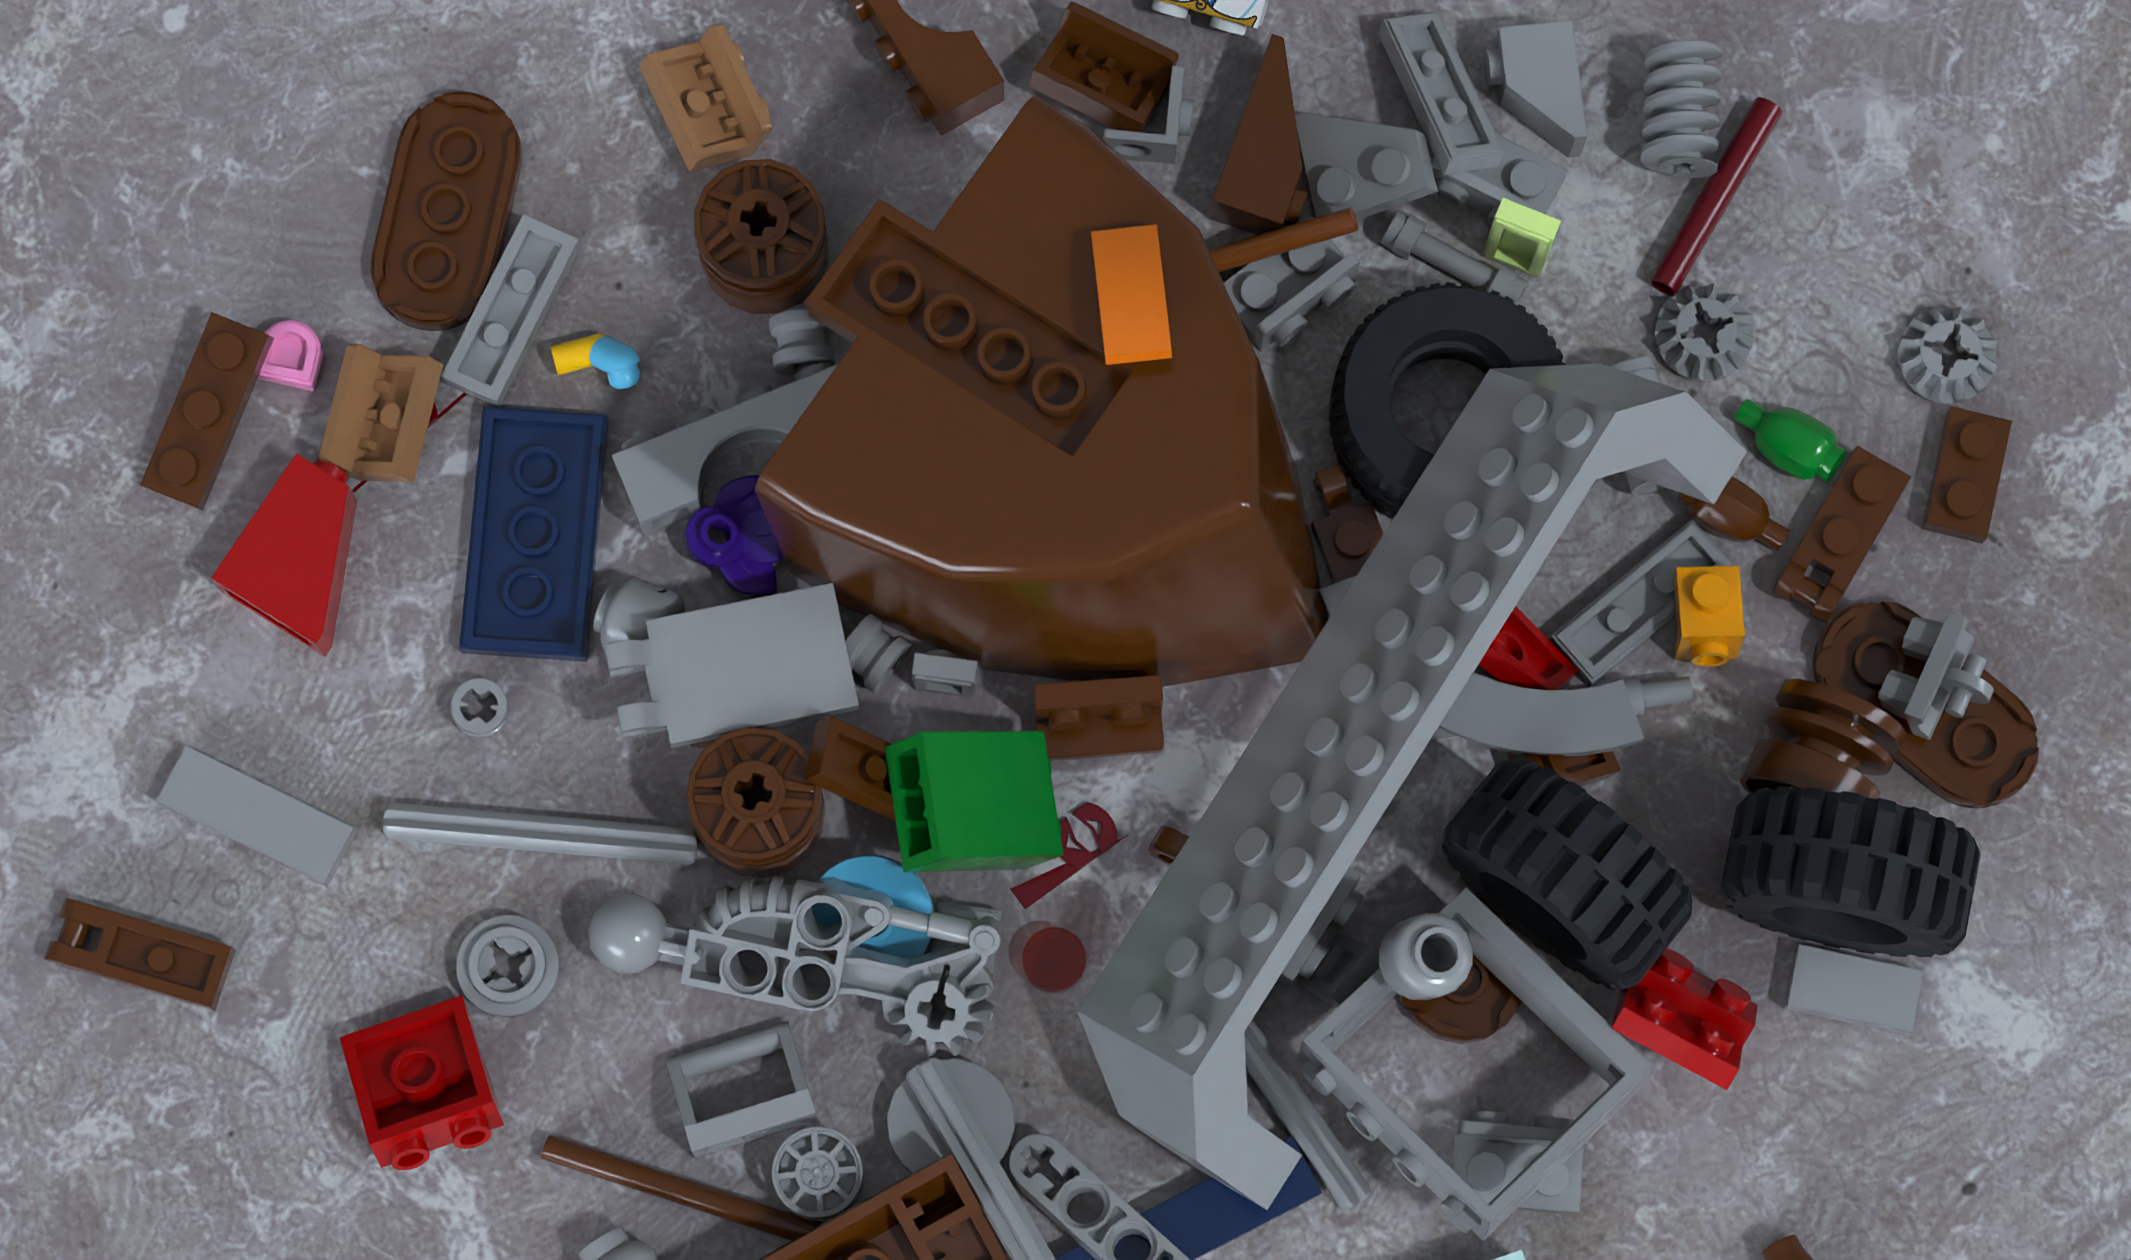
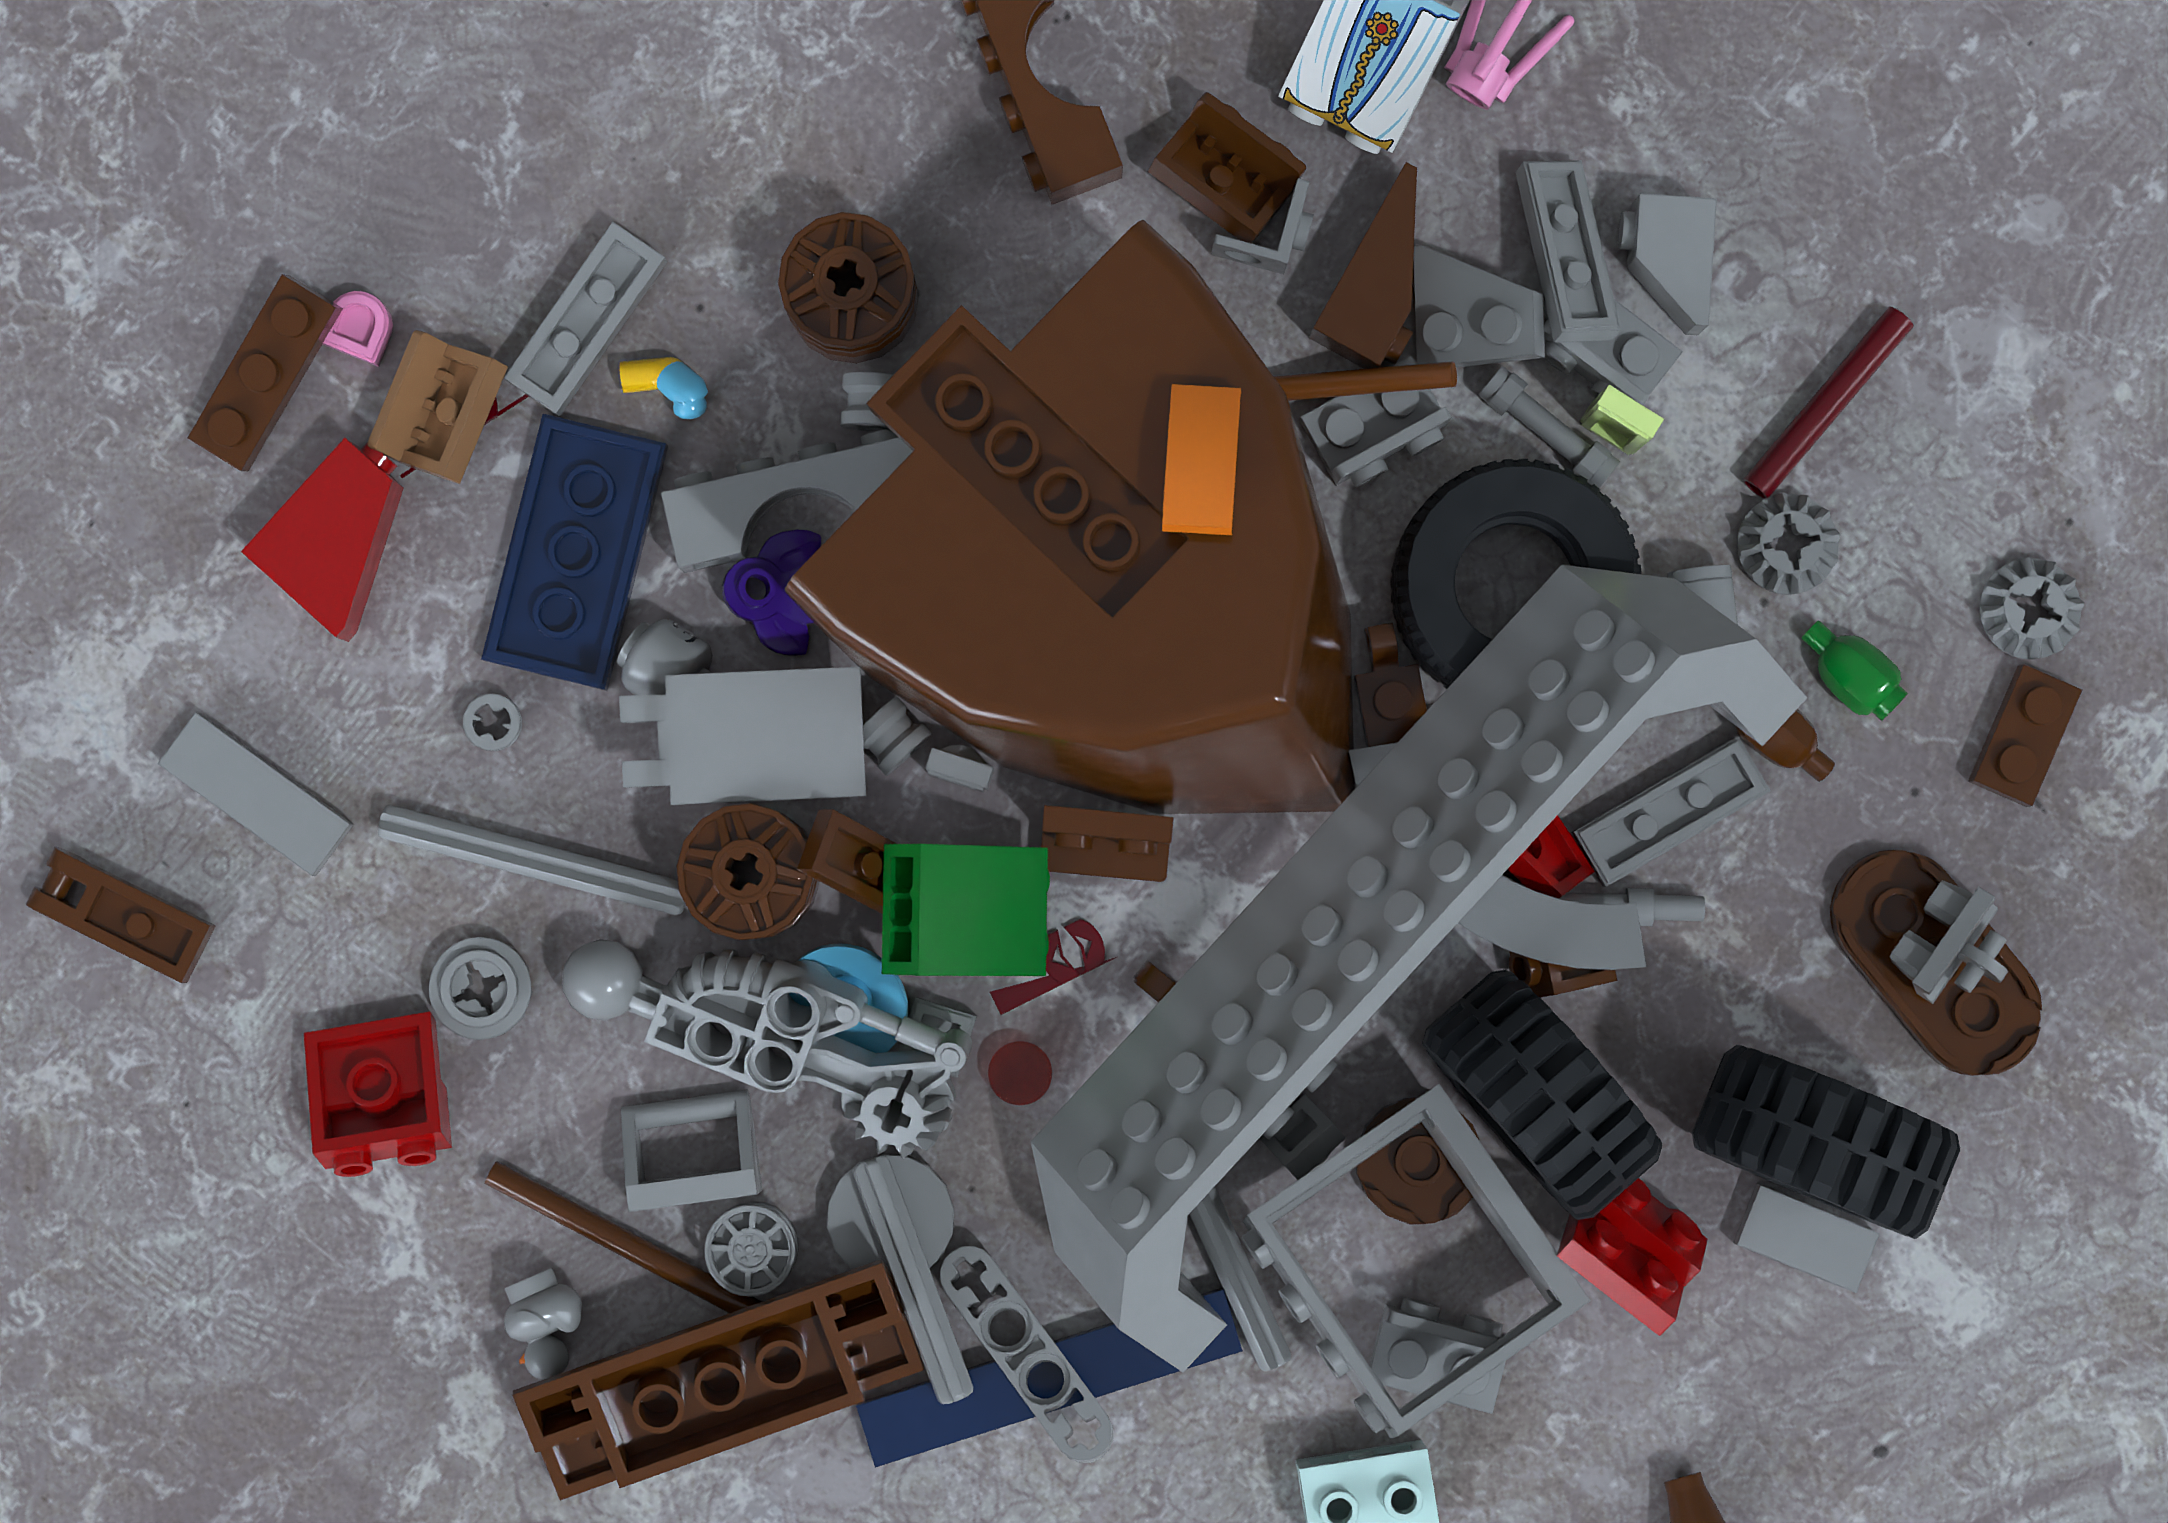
camera: 10 degrees right, 10 degrees up
(446, 210) = (537, 200): reddish brown tile -> none
(708, 99) = (819, 131): medium nougat bracket -> none
(1425, 956) = (1384, 1158): light grey head -> none
(1676, 107) = (1808, 308): light grey piece -> none
(1708, 614) = (1736, 838): light orange bracket -> none
(1824, 743) = (1822, 1006): reddish brown wheel -> none
(1842, 532) = (1887, 774): reddish brown plate -> none

